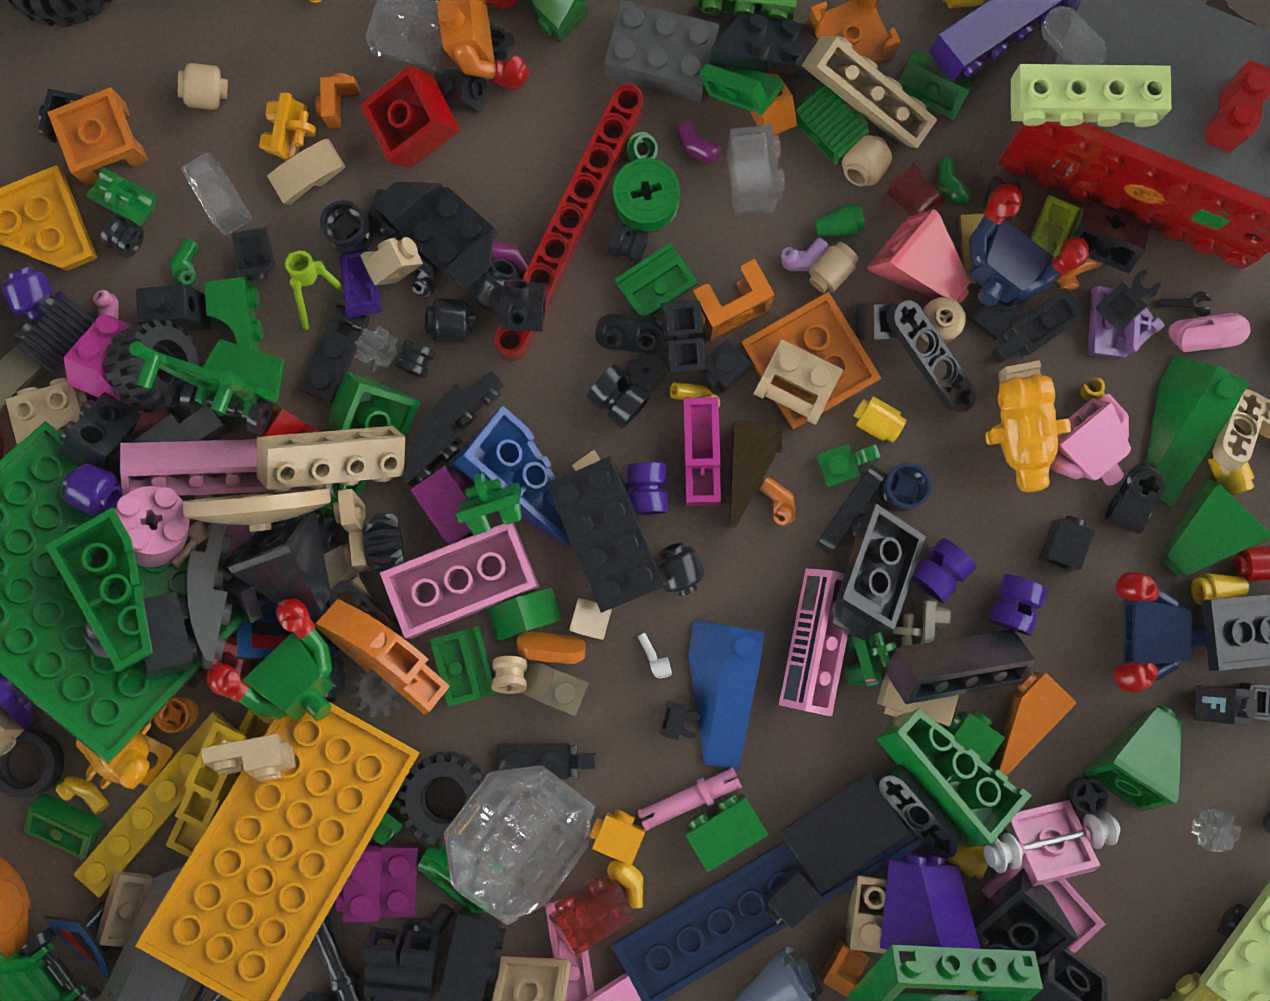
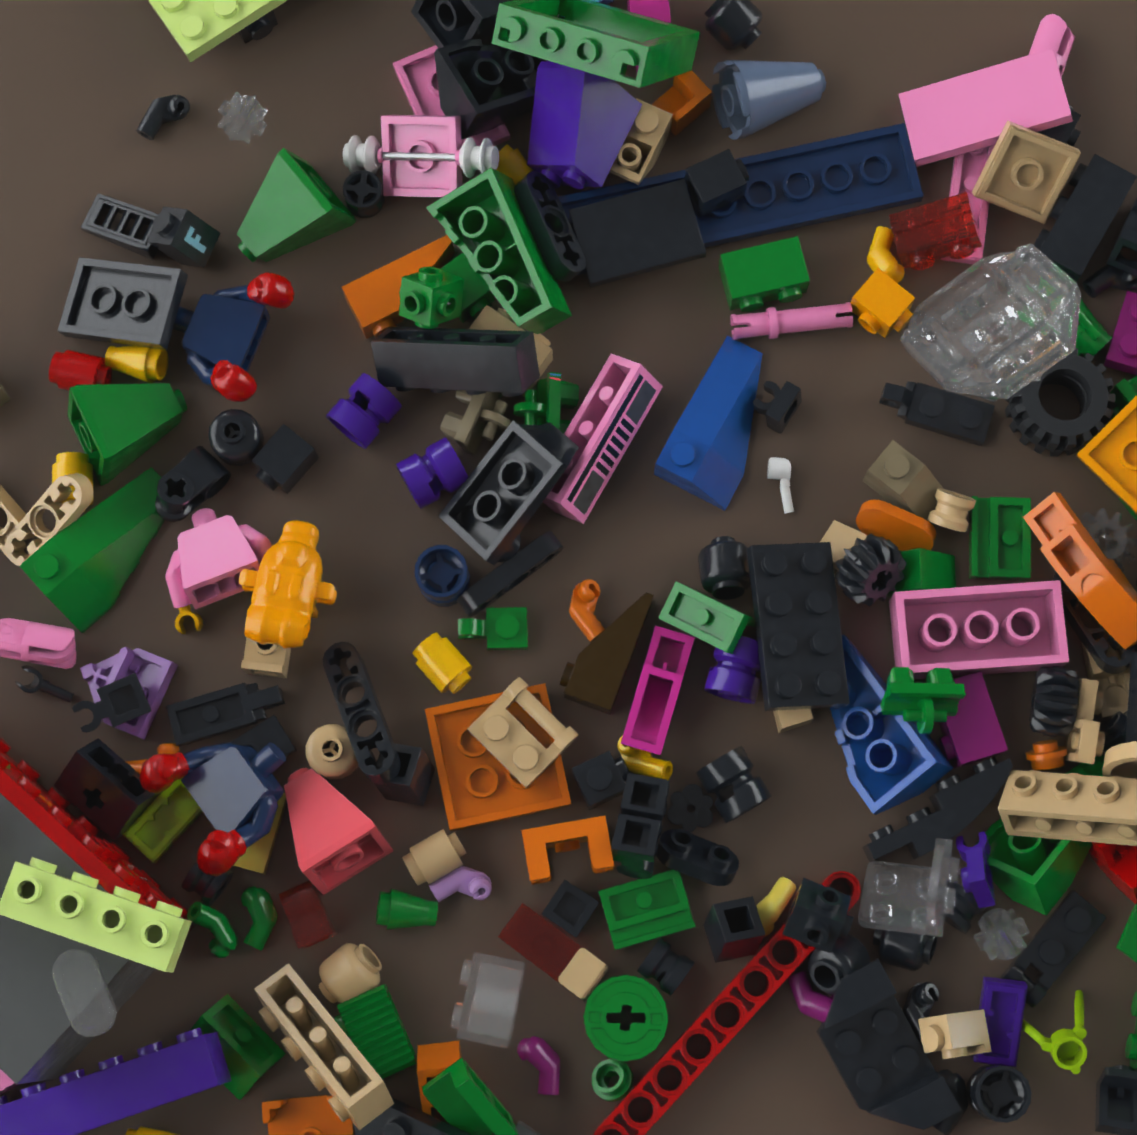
camera: 165 degrees left, 5 degrees down
(378, 499) = (1046, 755): none -> orange plate
(406, 382) = (978, 874): none -> dark purple plate
(455, 351) = (909, 895): none -> clear bracket
(561, 599) = (870, 569): none -> black gear
(562, 308) = (775, 902): none -> light yellow arm
(584, 284) = (734, 929): none -> black brick
(682, 520) = (705, 617): none -> green panel
(689, 215) = (583, 973): none -> tan slope
(714, 263) = (570, 908): none -> black plate
(726, 230) = (539, 941): none -> clear red plate
(978, 165) = (218, 925): none -> green arm
(999, 714) = (431, 297): none -> green brick
(1103, 549) = (248, 438): none -> black head

